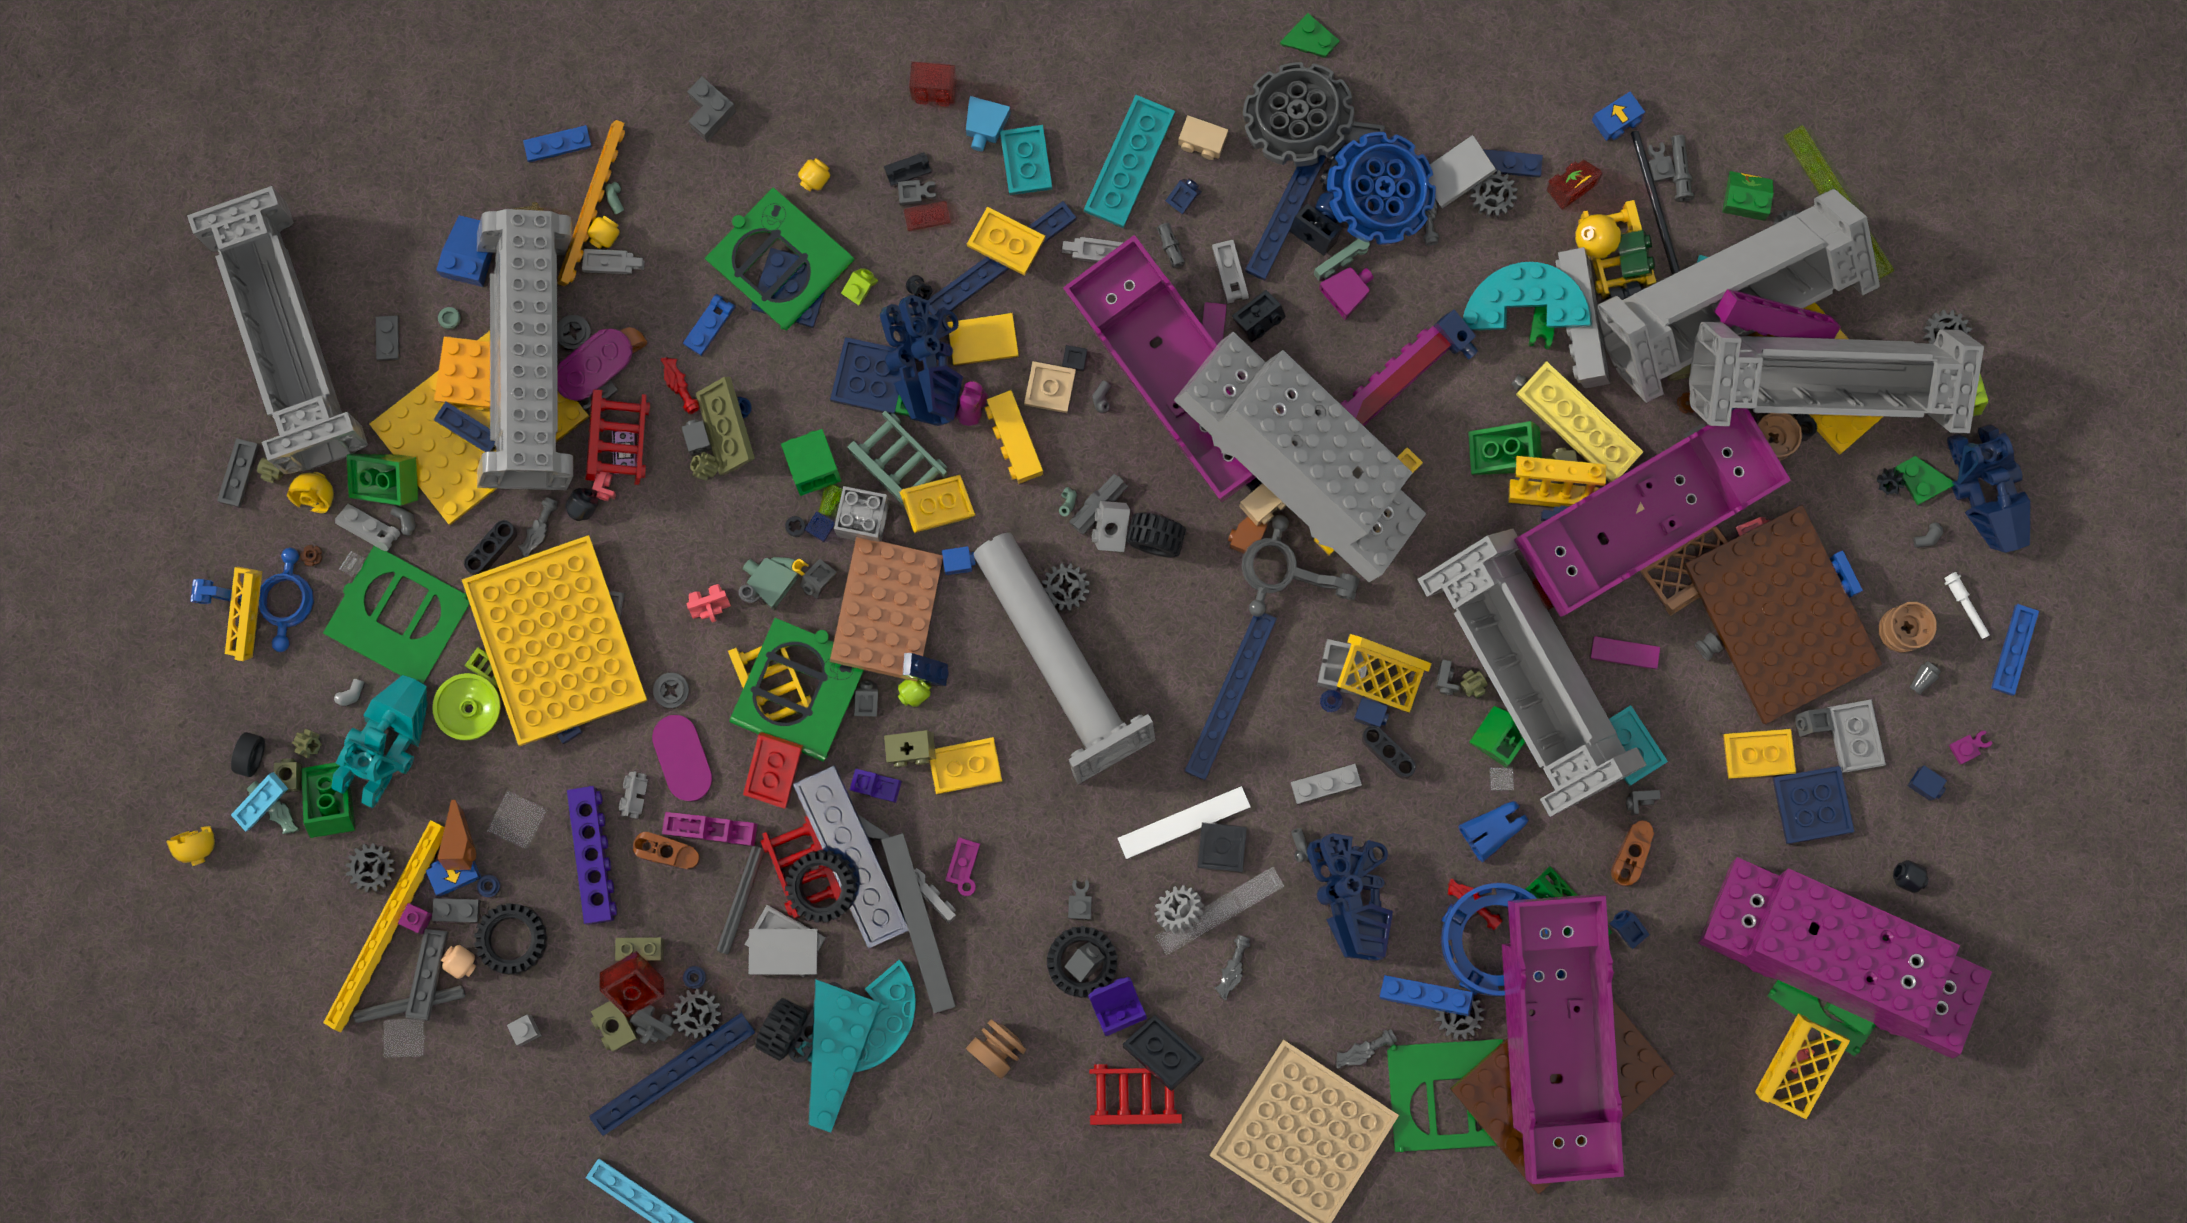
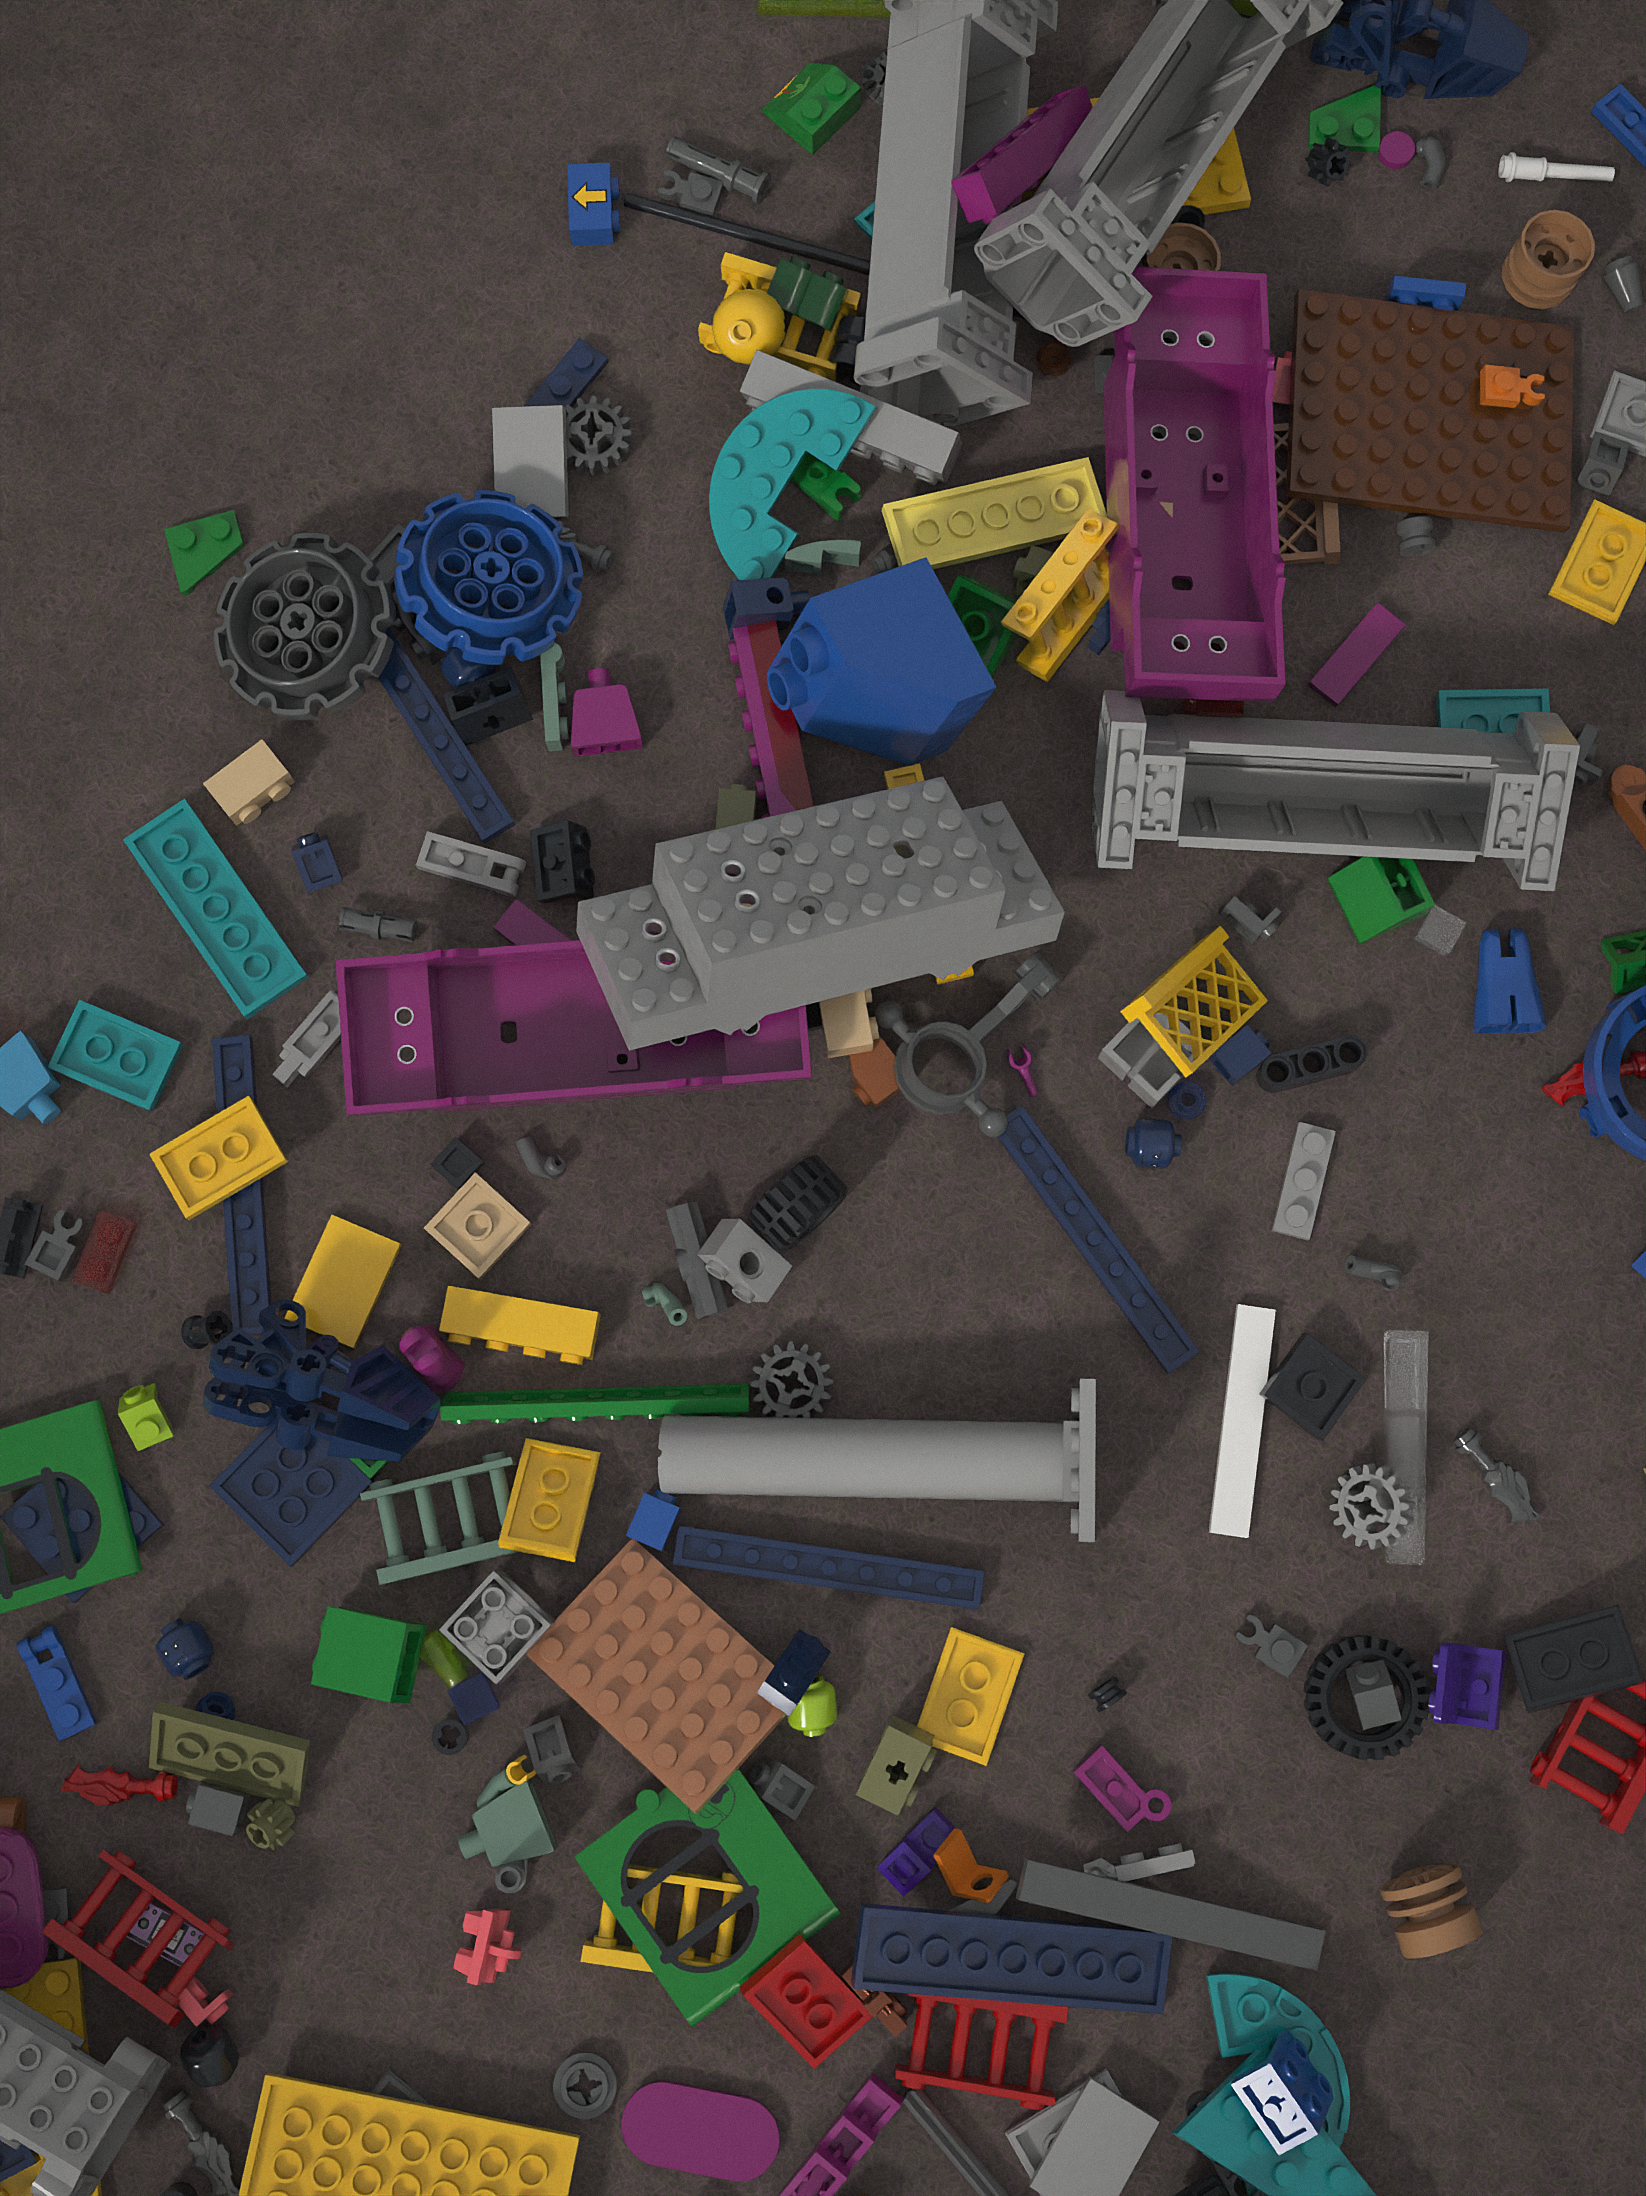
camera: 60 degrees left, 0 degrees up
(761, 374) = (184, 1649): none -> dark blue head
(791, 812) = (880, 2004): none -> copper hinge
(796, 893) = (1054, 2075): black tyre -> none
(866, 1023) = (1286, 2094): none -> blue bracket
(879, 809) = (963, 1872): none -> orange bracket
(986, 660) = (828, 1567): none -> dark blue plate
(994, 492) = (580, 1403): none -> green plate
(1006, 832) = (1107, 1694): none -> black bush
(1297, 607) = (1024, 1070): none -> magenta hand
(1297, 695) = (1152, 1143): none -> dark blue head
(1339, 385) = (735, 806): none -> olive brick
(1360, 929) = (1548, 1265): dark blue piece -> none
(1453, 409) = (882, 667): none -> blue slope
(1473, 684) = (1282, 885): olive gear -> none
(1499, 343) = (810, 557): none -> sand green slope
(1574, 183) = (647, 317): clear red slope -> none
(1819, 644) = (1505, 388): none -> orange plate
(1924, 514) = (1396, 150): none -> magenta tile

